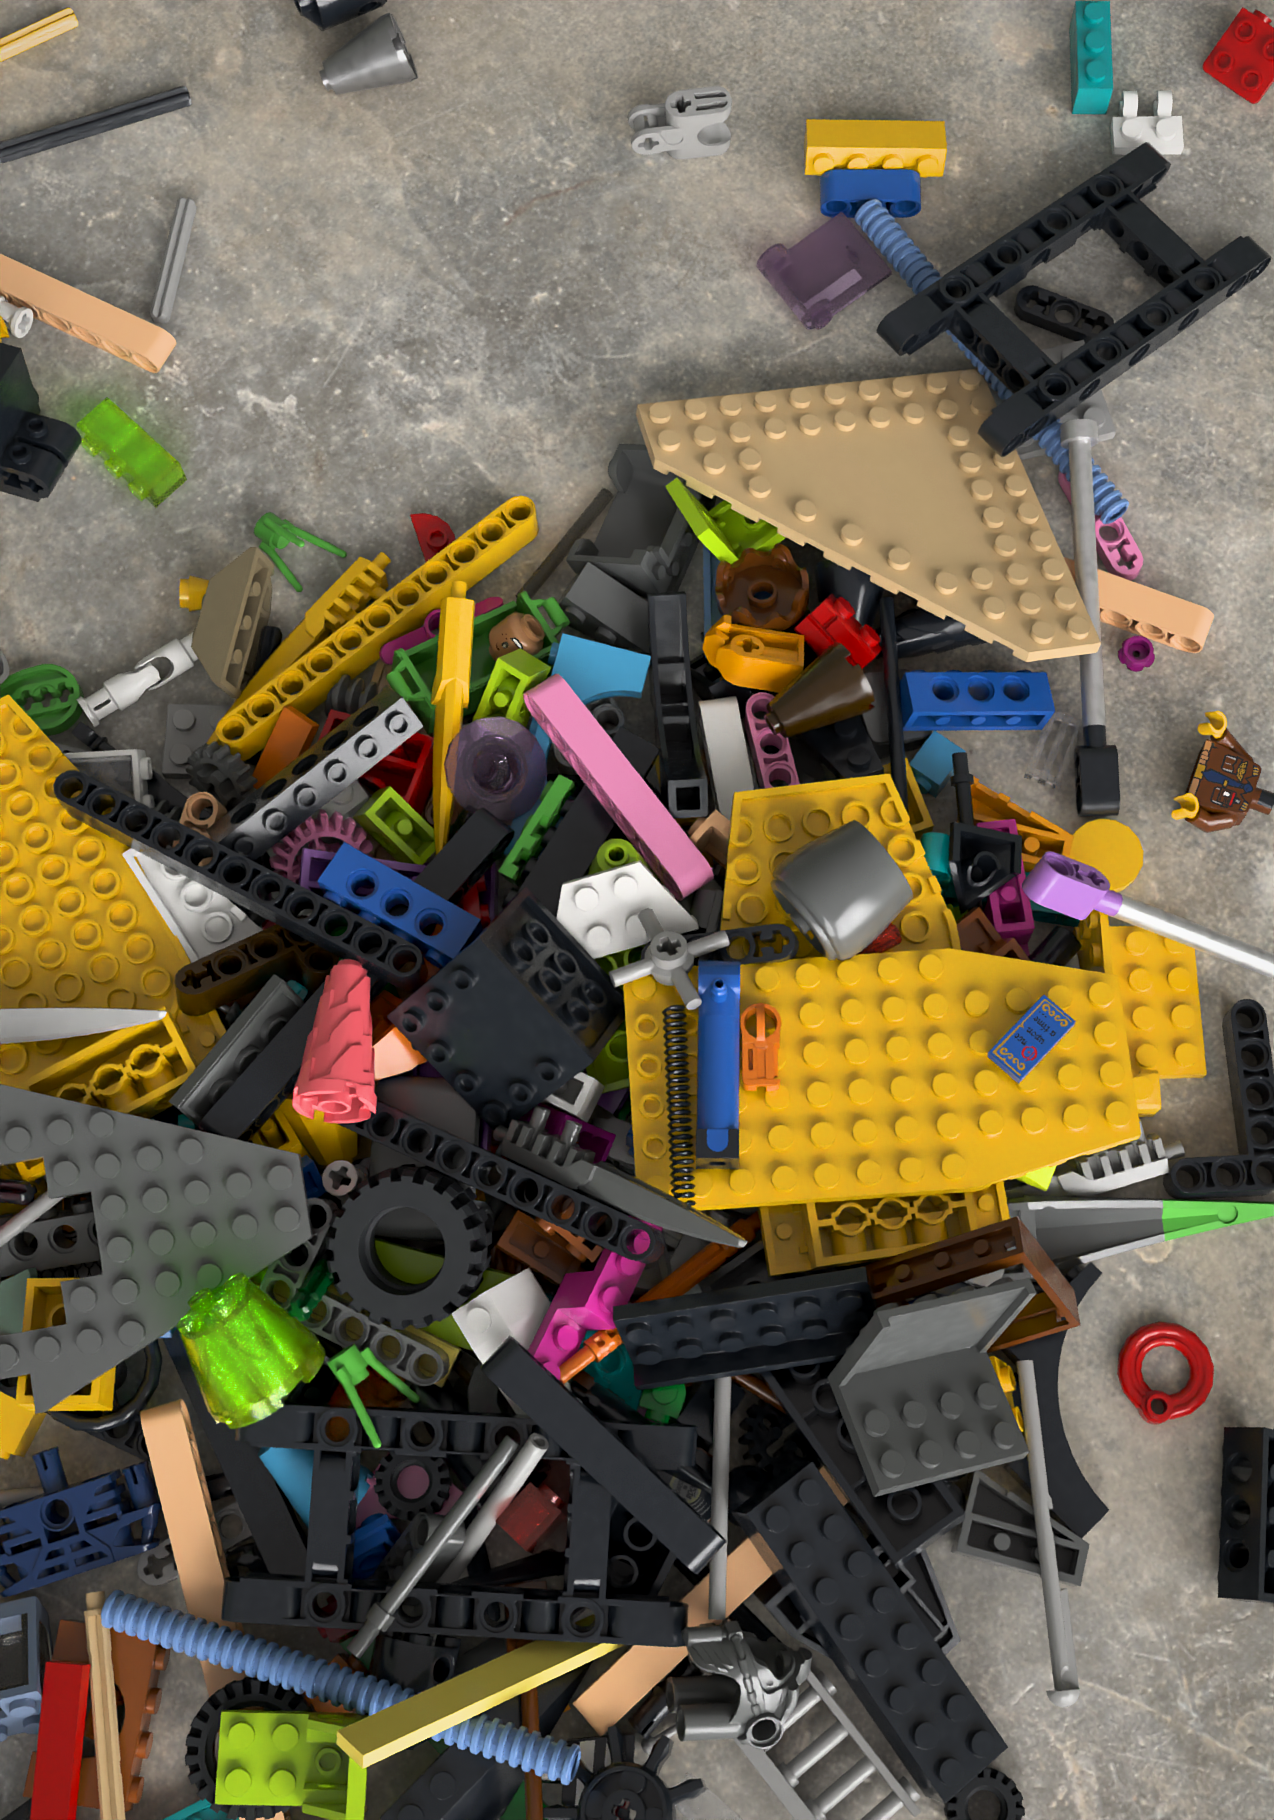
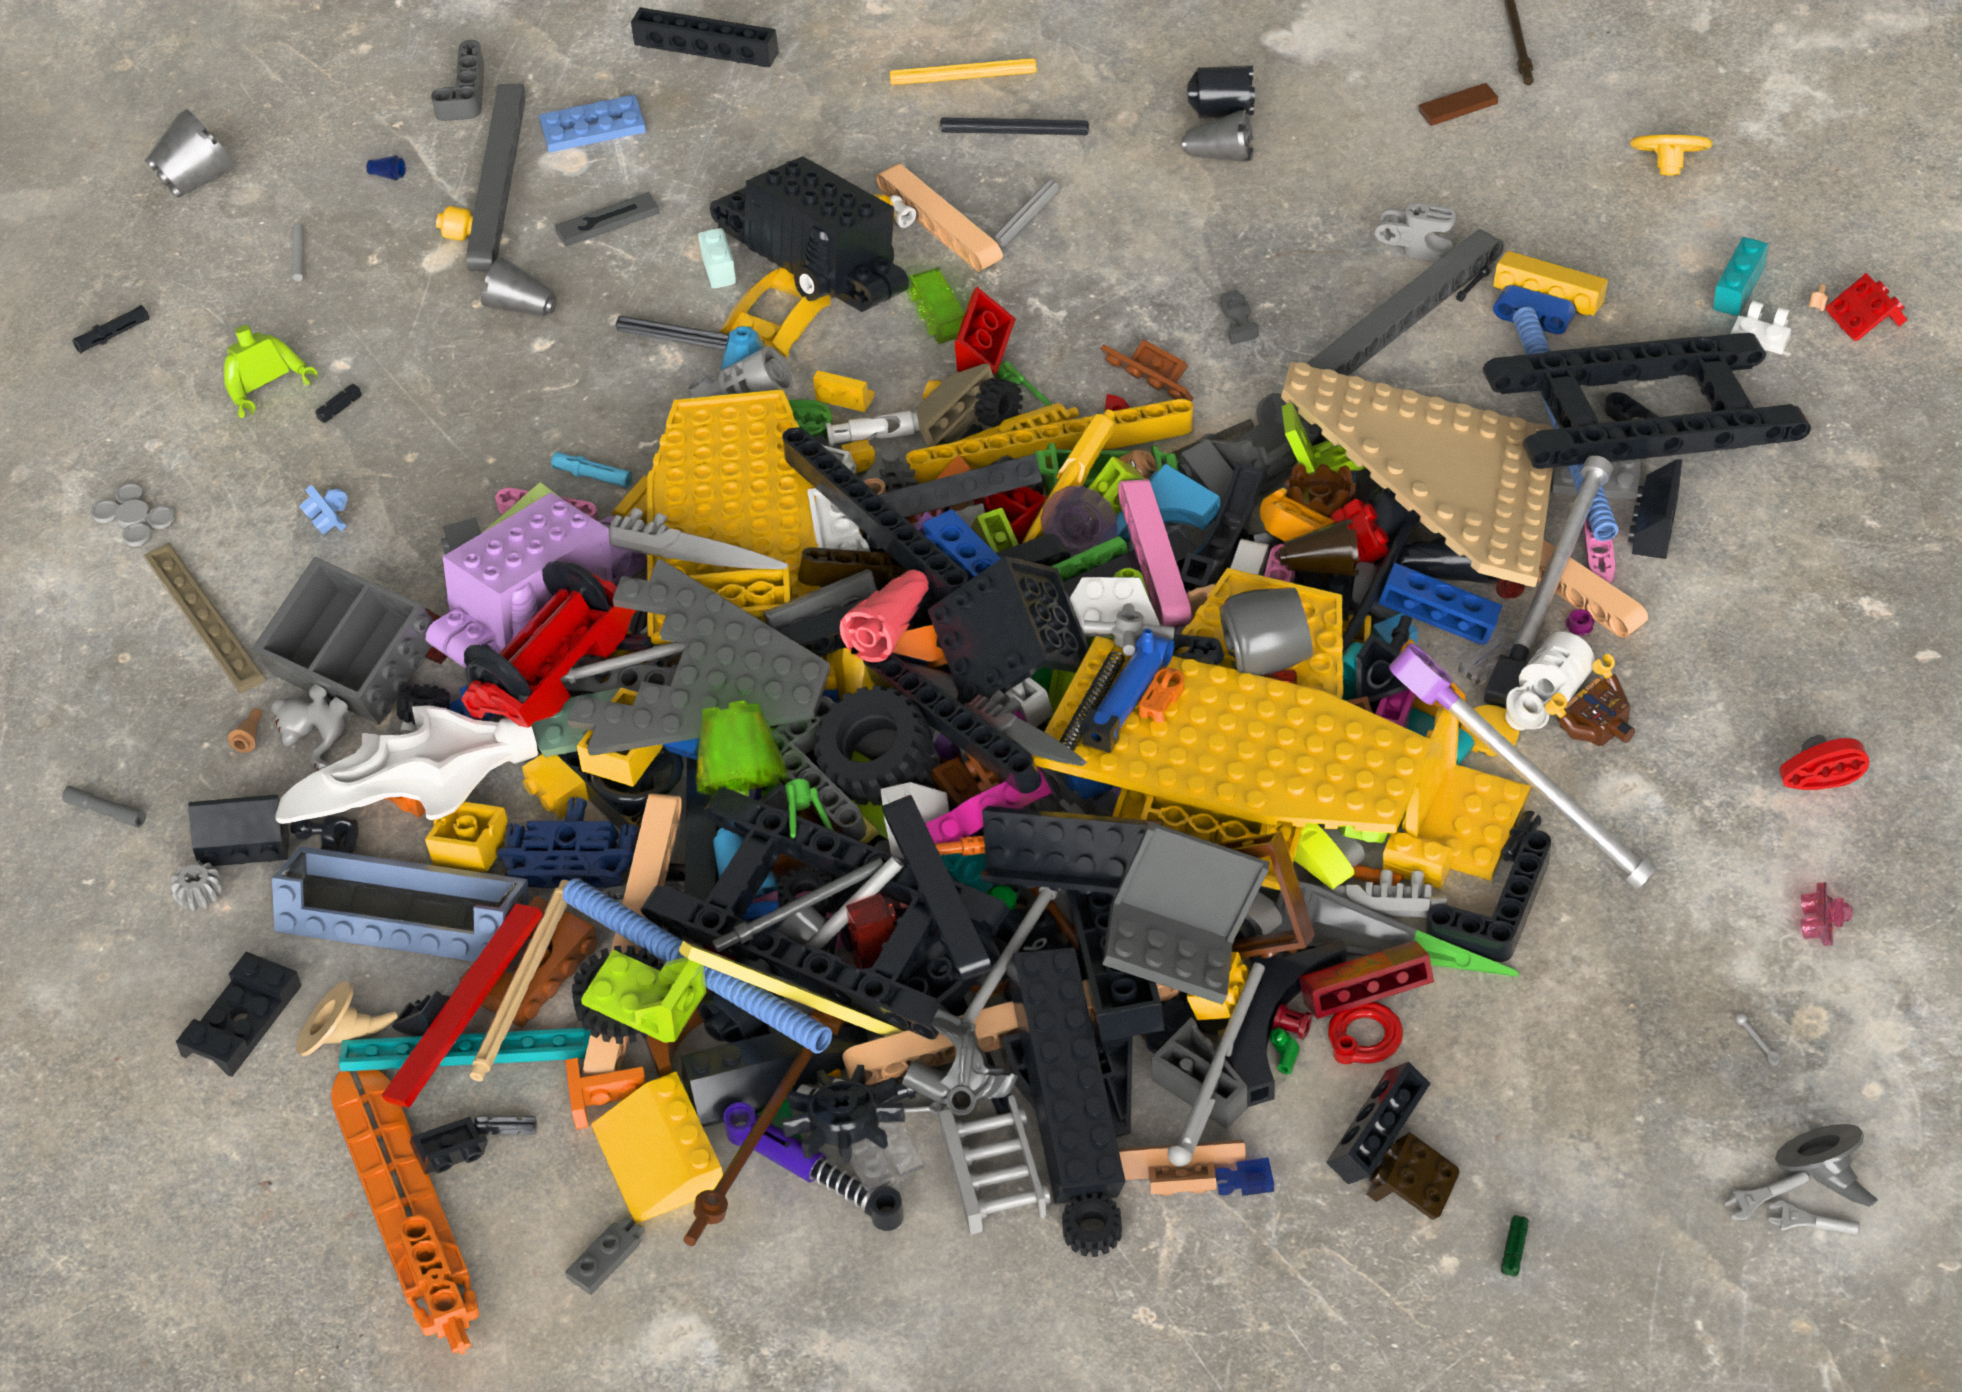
camera: 25 degrees right, 25 degrees down
(74, 639) = (842, 391): none -> yellow bracket
(140, 728) = (862, 454): none -> yellow bracket
(220, 492) = (982, 333): none -> red slope
(286, 588) = (998, 401): none -> black tyre
(311, 1291) = (796, 741): dark green axle -> none
(451, 449) = (1153, 364): none -> dark orange bracket
(510, 320) = (1238, 309): none -> dark grey piece
(713, 252) = (1409, 304): none -> dark grey beam
(780, 153) = (1484, 271): none -> black hinge
(820, 273) = (1470, 345): clear purple door -> none
(1031, 1039) = (1348, 746): blue tile -> none
(1031, 1678) = (1196, 1176): none -> bracket
(1089, 1437) = (1287, 1048): none -> green arm
(1091, 1403) = (1293, 1021): none -> dark red bush
(1137, 1650) = (1250, 1176): none -> clear blue plate
(1140, 1302) = (1366, 979): none -> dark red brick
(1154, 768) = (1557, 667): none -> white cylinder
(1159, 454) = (1656, 511): none -> black slope
(1192, 57) = (1819, 299): none -> light nougat hand
(1214, 1005) = (1517, 834): none -> black axle

